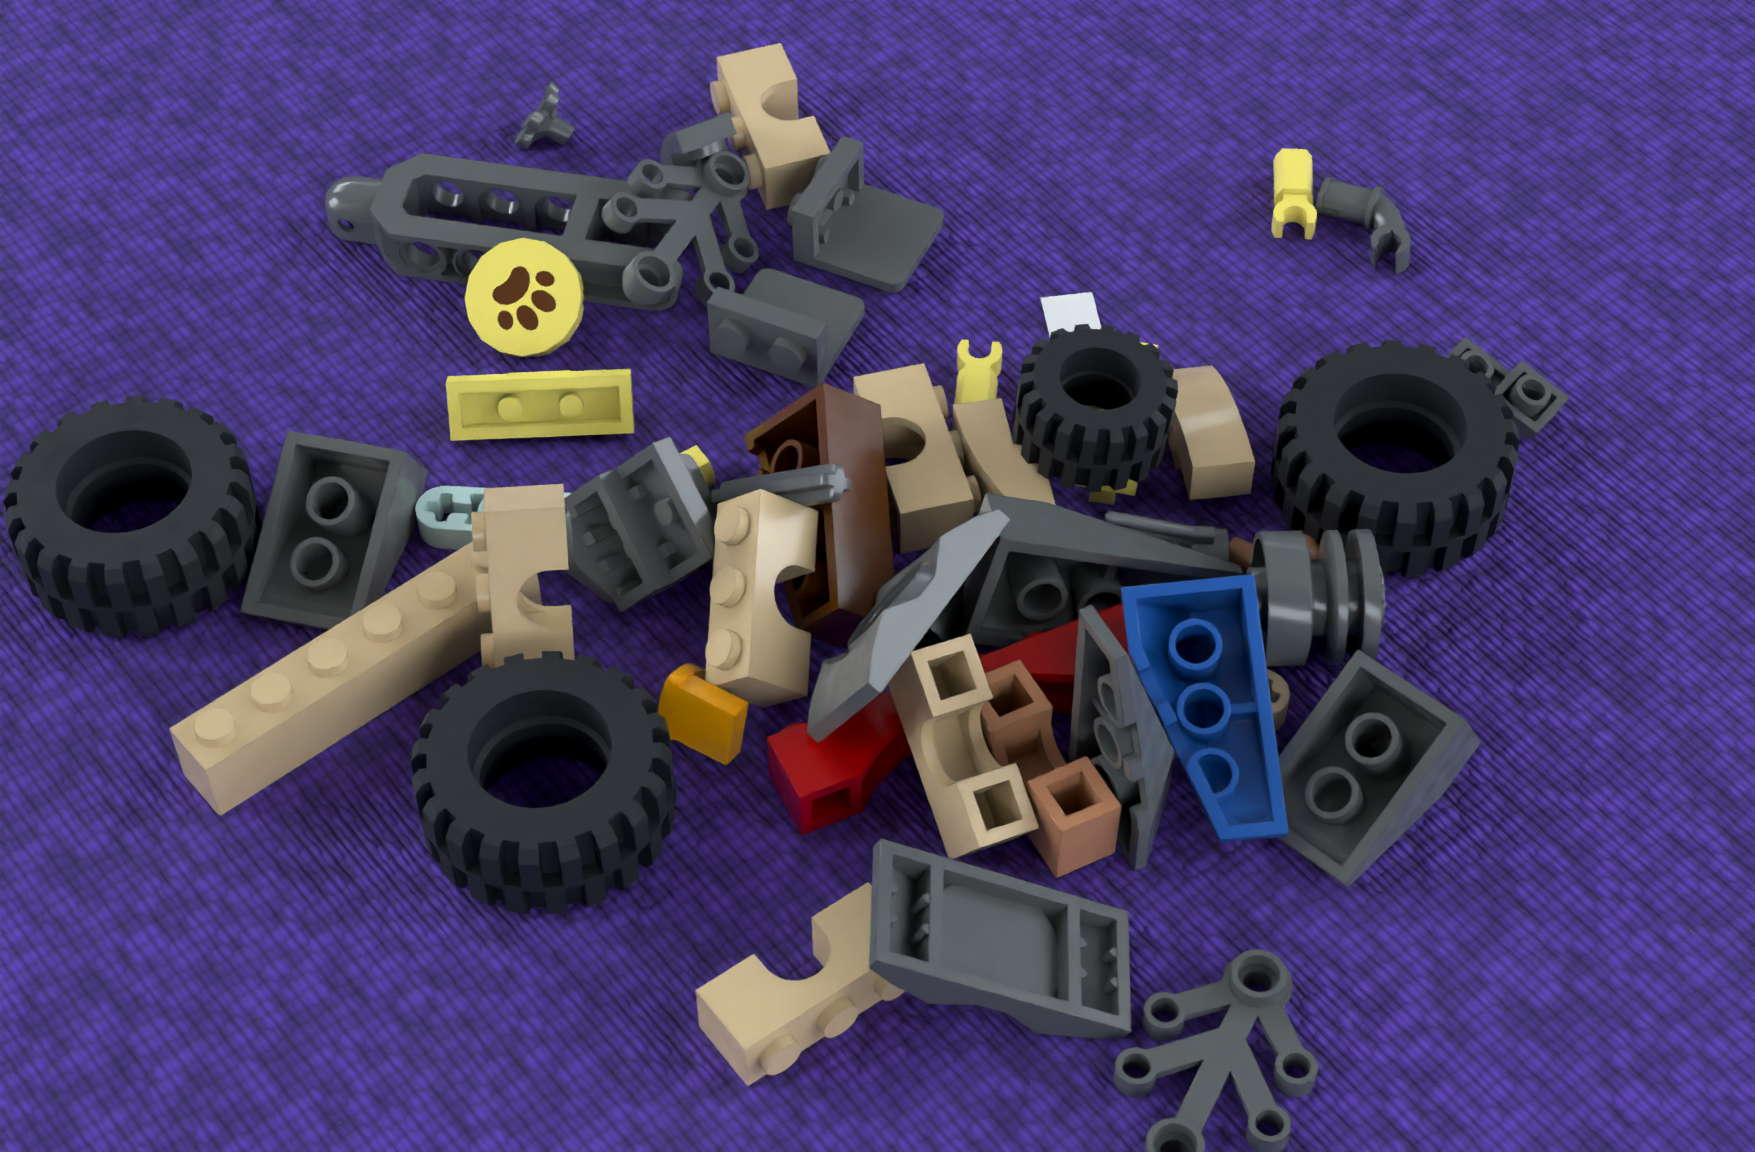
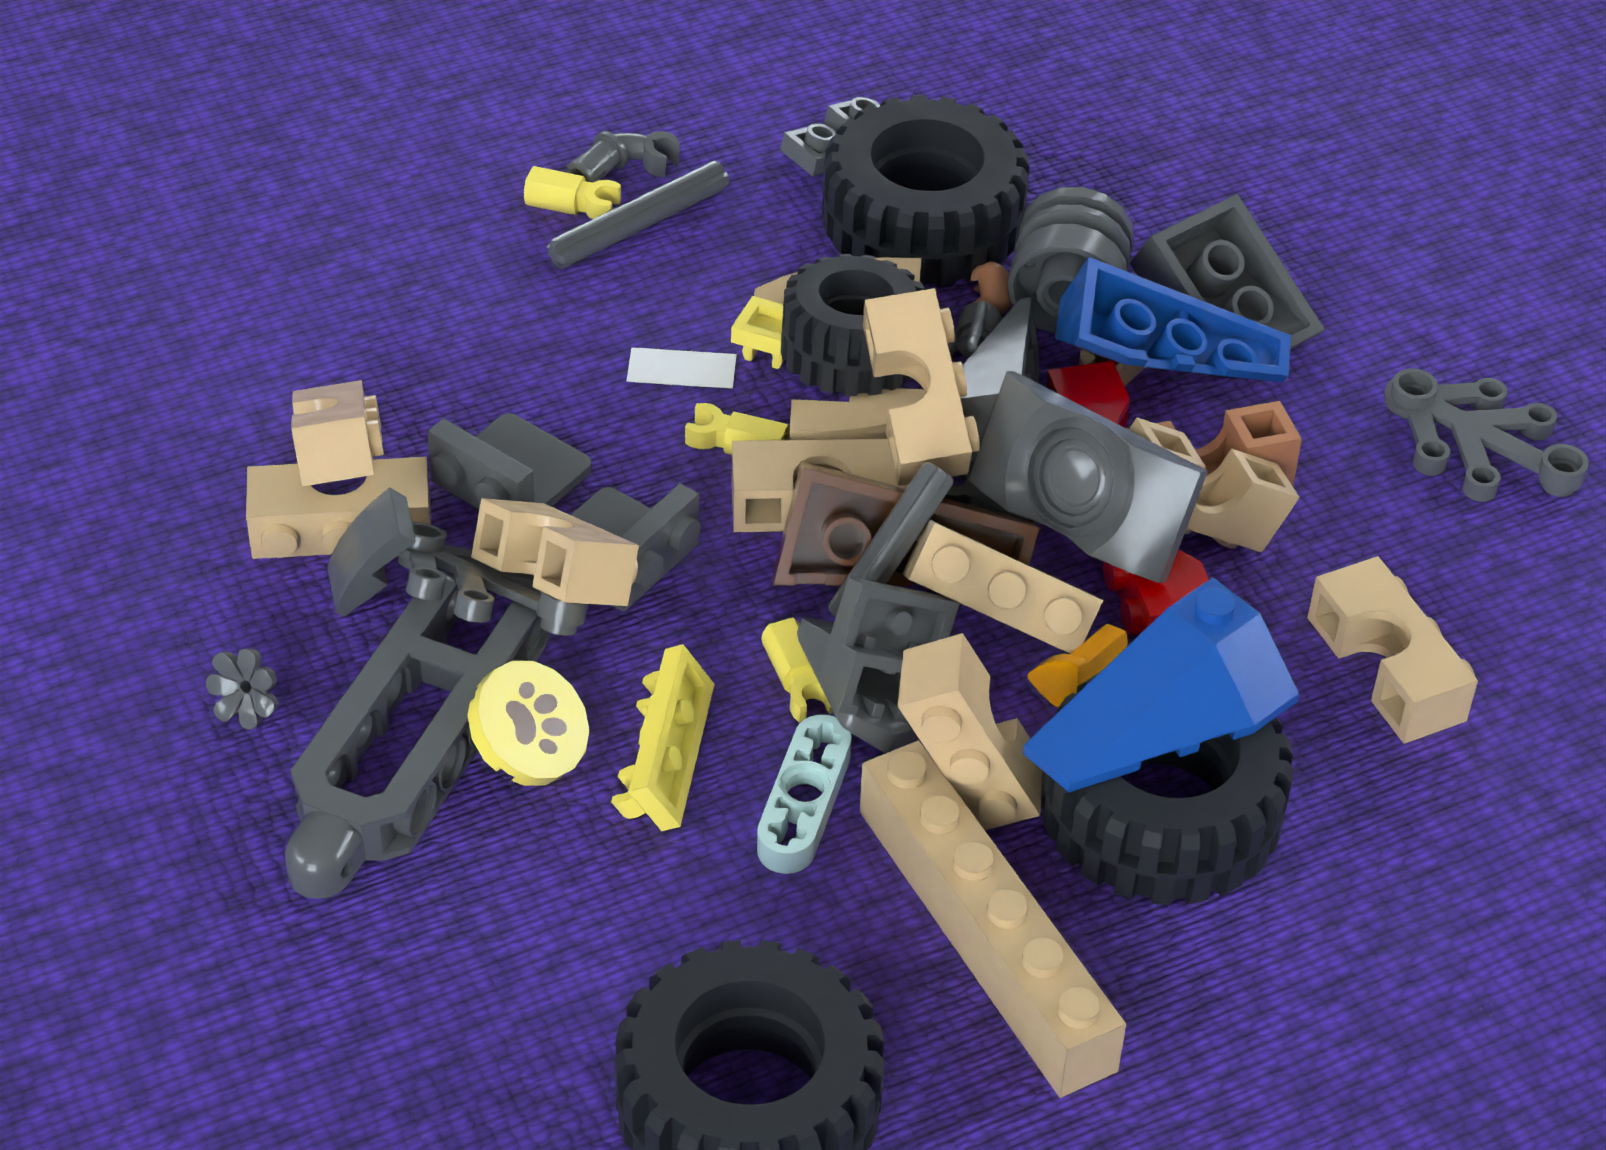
camera: 80 degrees left, 5 degrees down
(331, 530) = (796, 893): dark grey slope -> none
(592, 727) = (1182, 681): none -> blue wedge
(675, 259) = (561, 551): none -> tan arch
(796, 77) = (335, 432): none -> tan arch
(999, 944) = (1383, 511): dark grey slope -> none
(1010, 432) = (912, 338): none -> tan arch
(1120, 735) = (1219, 363): dark grey wedge -> none
(1287, 252) = (637, 214): none -> dark grey axle

